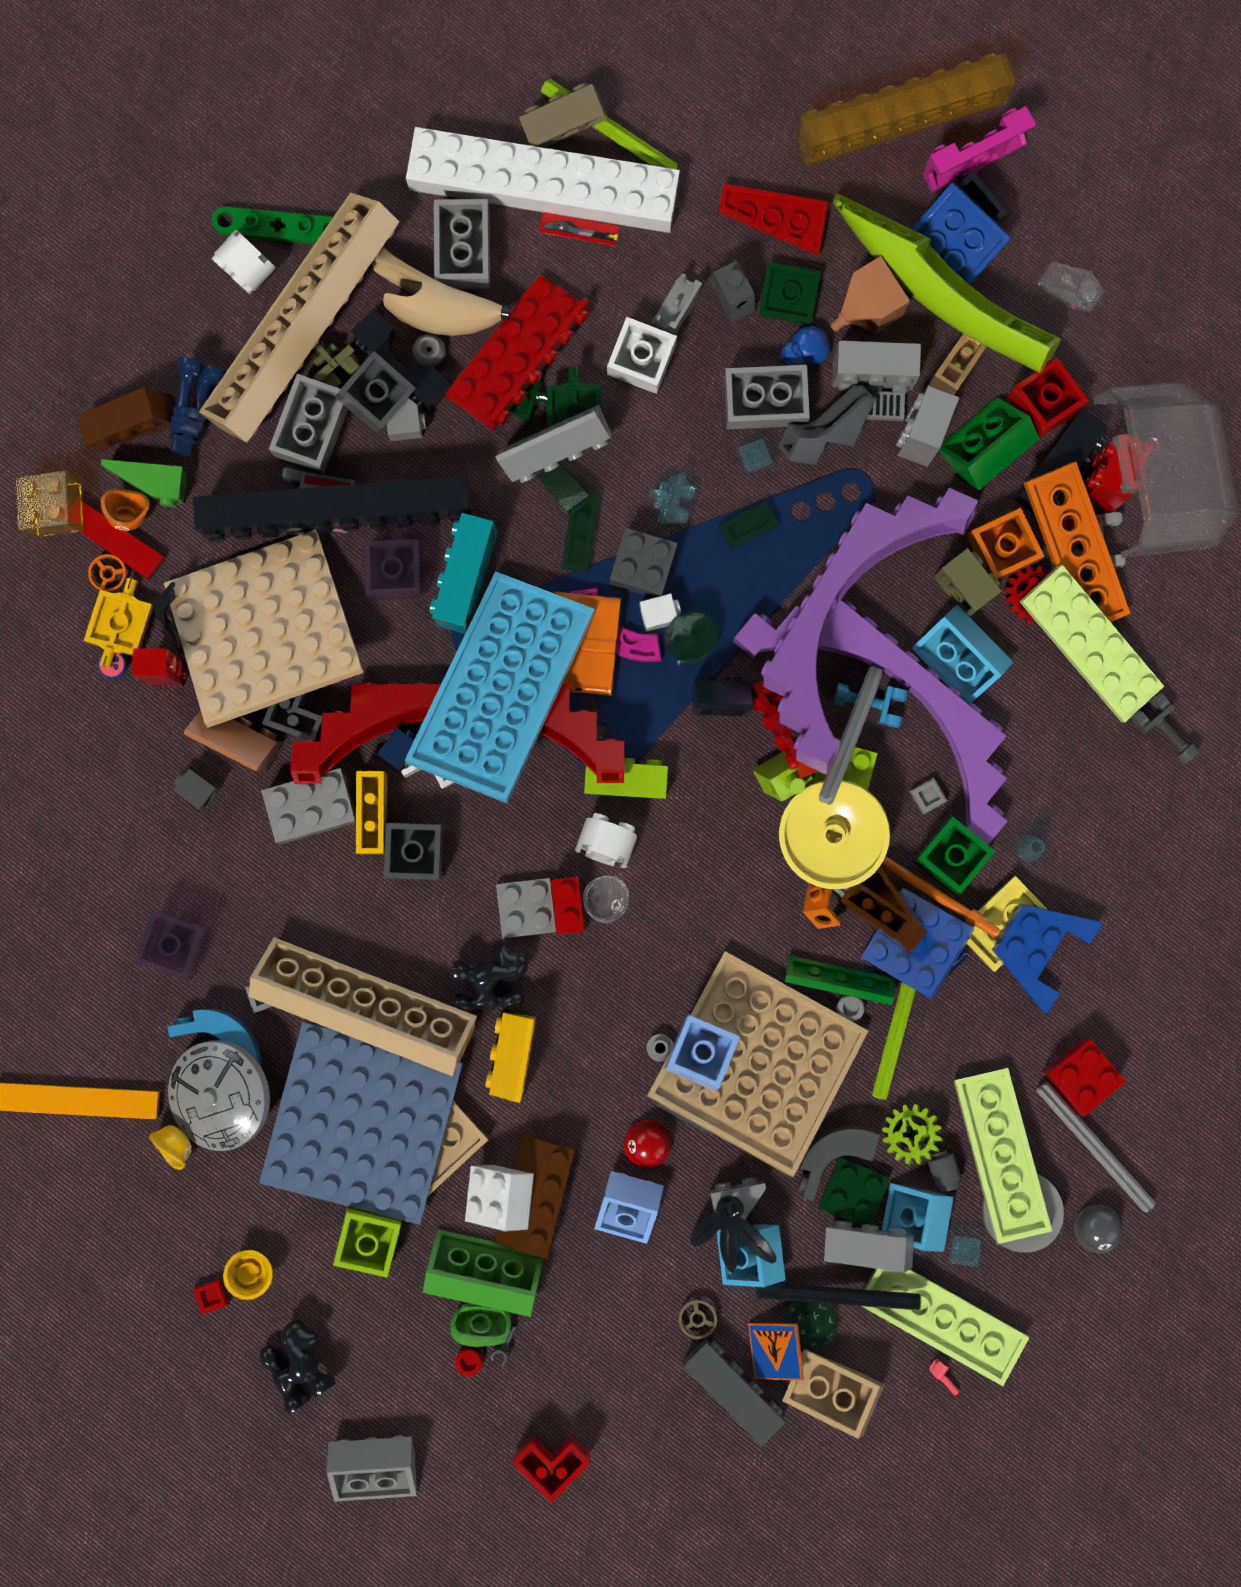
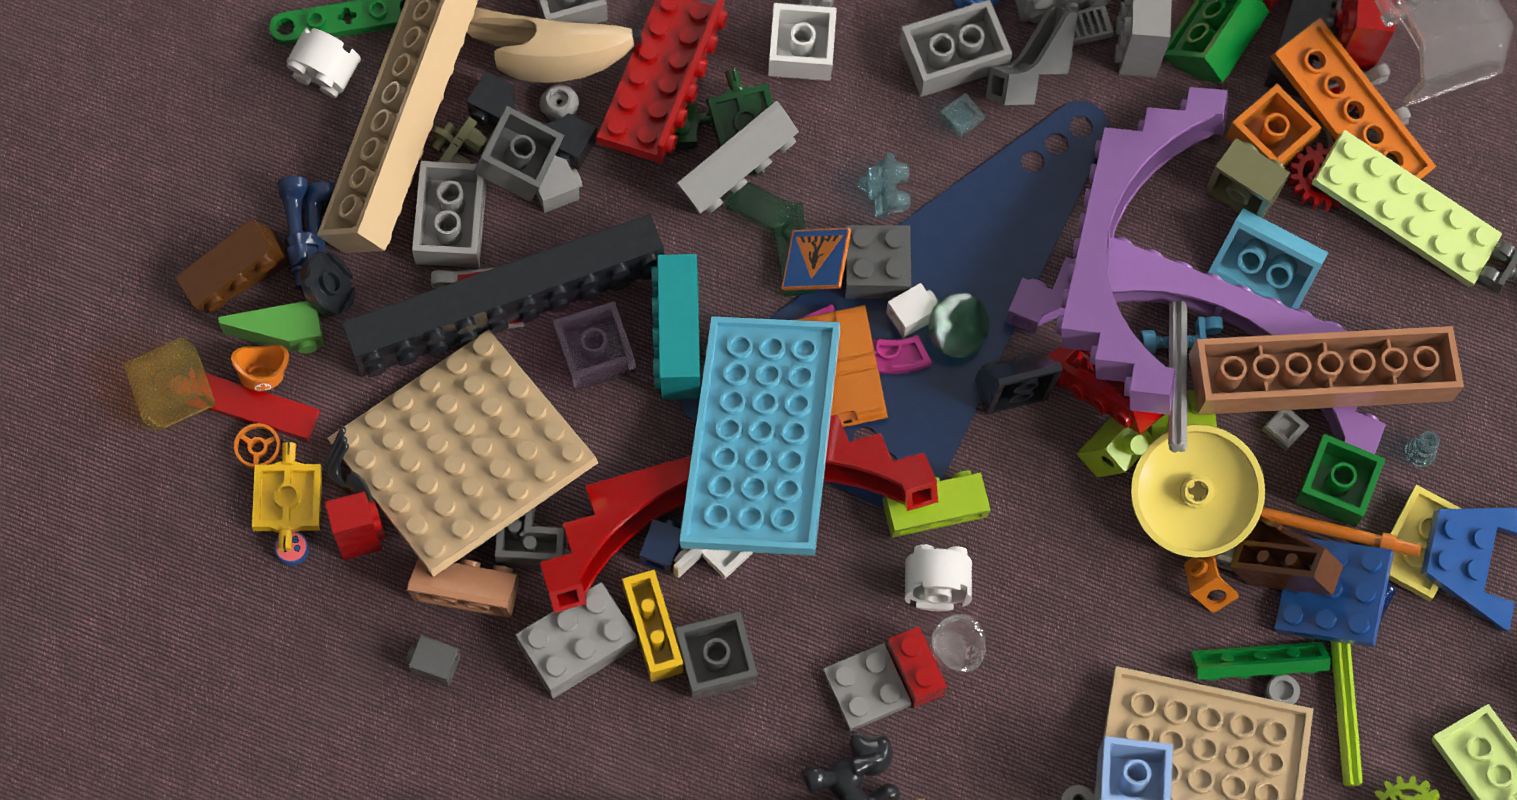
camera: 20 degrees left, 15 degrees down
(196, 455) = (327, 283): none -> black tile
(593, 548) = (816, 259): none -> piece
(748, 525) = (980, 191): clear green tile -> none
(971, 766) = (1325, 370): none -> nougat brick

